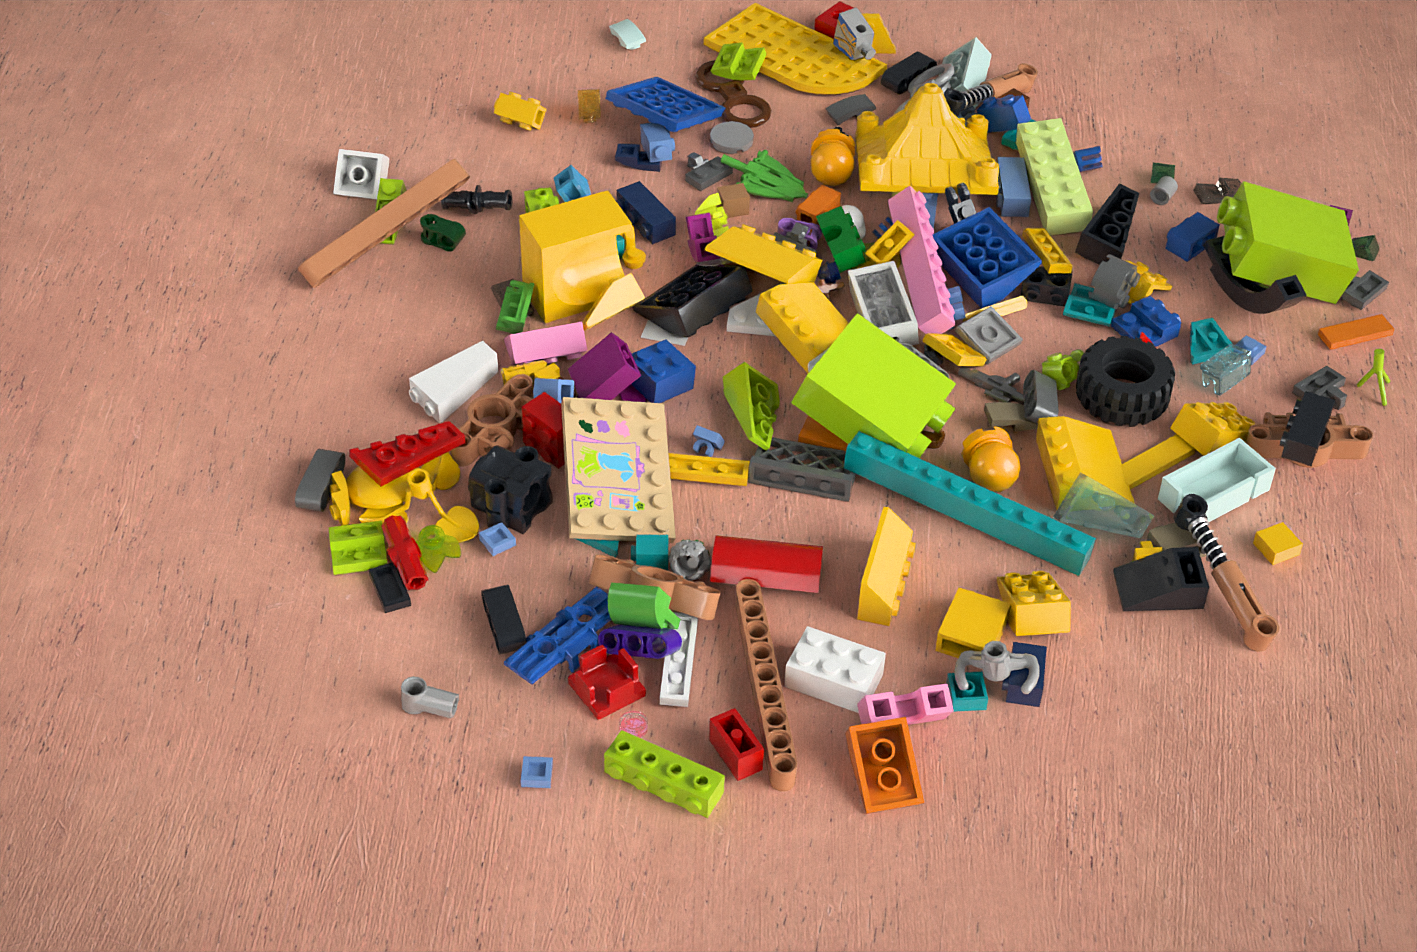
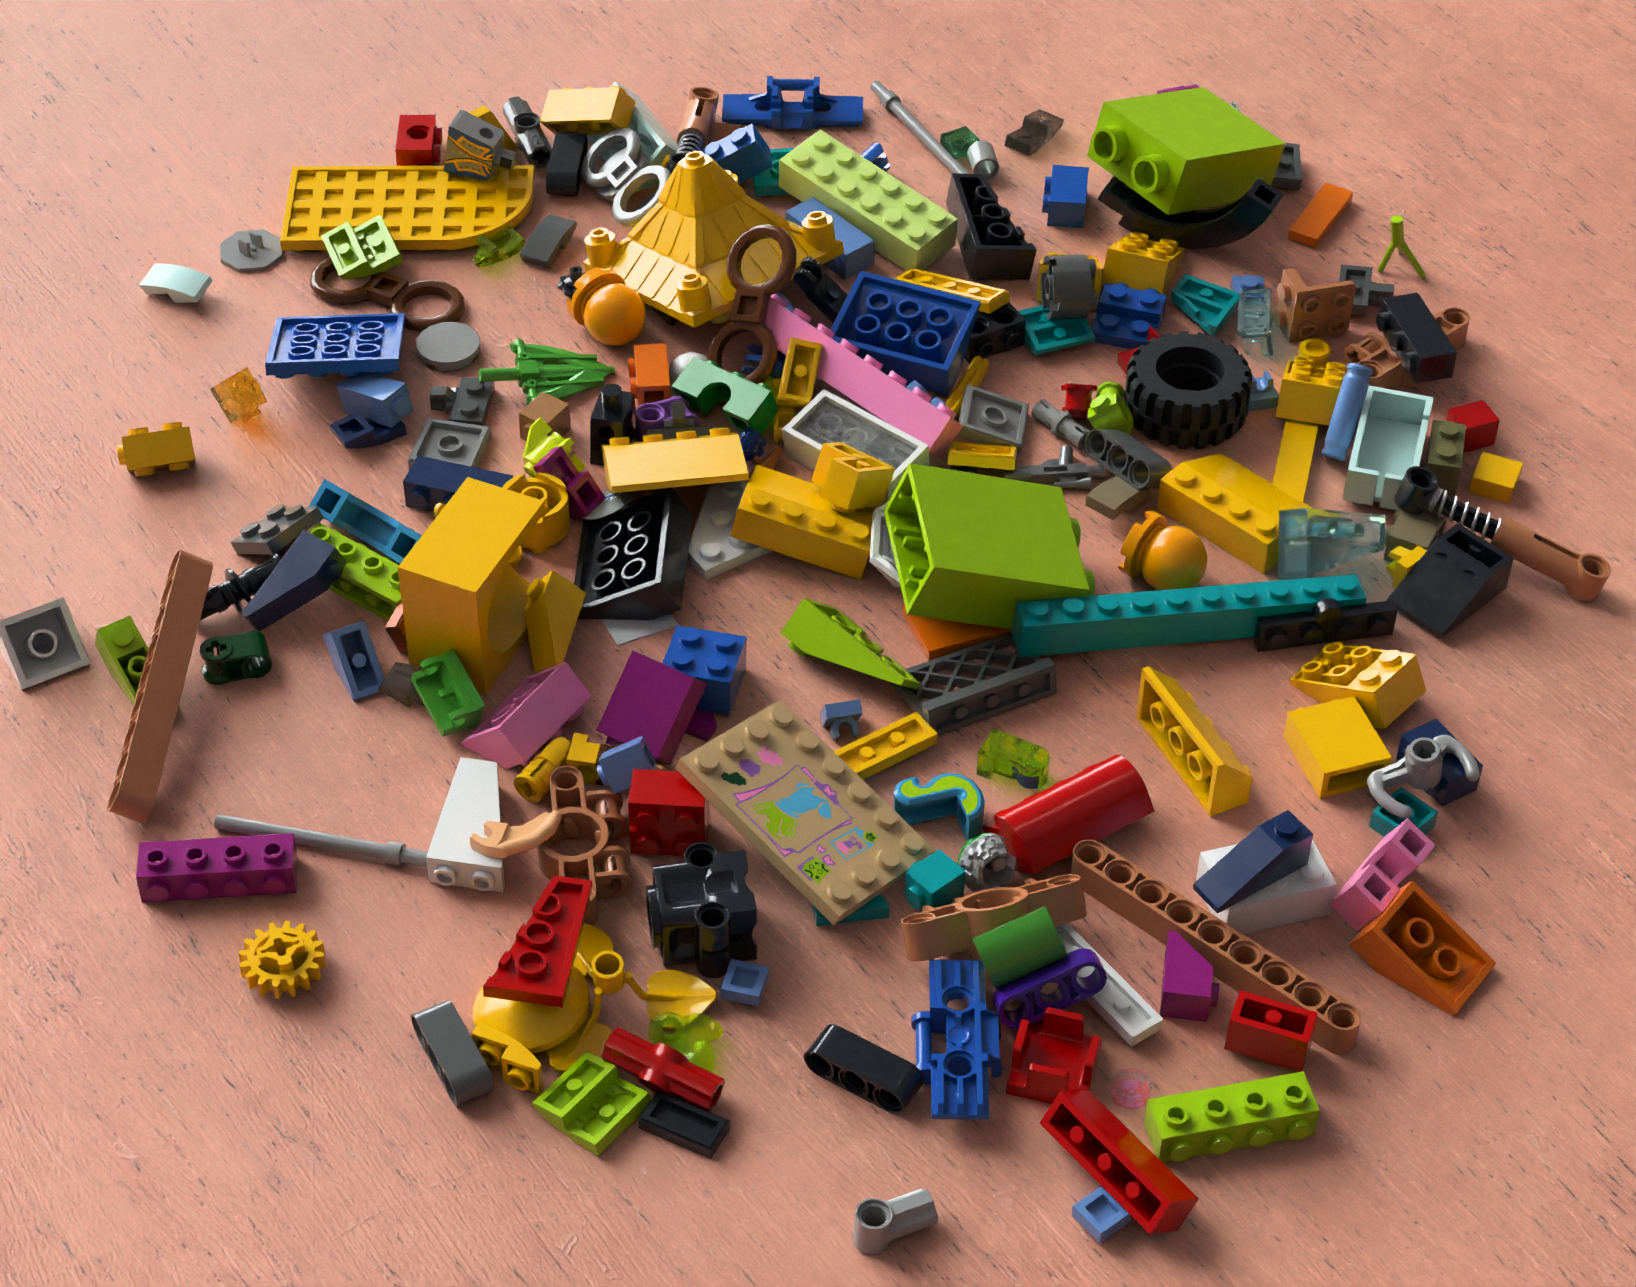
camera: 40 degrees left, 0 degrees up
(296, 387) = (282, 959): none -> yellow gear
(317, 327) = (217, 871): none -> magenta brick
(406, 370) = (392, 852): none -> light grey bar
(456, 394) = (512, 840): none -> light nougat piece
(495, 264) = (355, 659): none -> medium blue slope
(502, 208) = (298, 578): none -> dark blue slope
(538, 179) = (276, 530): none -> dark grey plate
(572, 751) = (1119, 1161): none -> red brick
(668, 243) = (555, 520): none -> yellow brick
(673, 189) = (451, 442): none -> light grey tile
(688, 37) = (251, 250): none -> light grey piece
(707, 512) = (940, 798): none -> dark azure animal
(723, 688) = (1186, 982): none -> magenta slope
(763, 214) = (612, 410): none -> black torso
(775, 517) = (1013, 759): none -> clear neon green leg
(817, 100) = (498, 248): none -> clear neon green slope
(821, 646) = (1256, 862): none -> dark blue slope
(842, 308) = (851, 478): none -> yellow brick
(899, 190) = (752, 300): none -> reddish brown bar
(906, 42) = (527, 131): none -> dark grey piece
(945, 46) = (587, 110): none -> brick
(1030, 359) = (1060, 423): none -> light grey pin
(1051, 558) = (1326, 625): none -> black hinge
(1052, 347) = (1078, 399): none -> red brick
(1080, 111) = (841, 110): none -> blue piece
(1148, 132) = (893, 103): none -> light grey bar
(1174, 407) = (1263, 393): none -> medium blue tile
(1193, 297) = (1142, 262): none -> yellow slope
(1212, 440) = (1347, 412): none -> medium blue axle
(1248, 407) = (1316, 350): none -> yellow tile
(1250, 511) = (1446, 453): none -> olive brick
(1268, 379) = (1312, 310): none -> nougat bracket
(1294, 504) = (1480, 424): none -> red brick

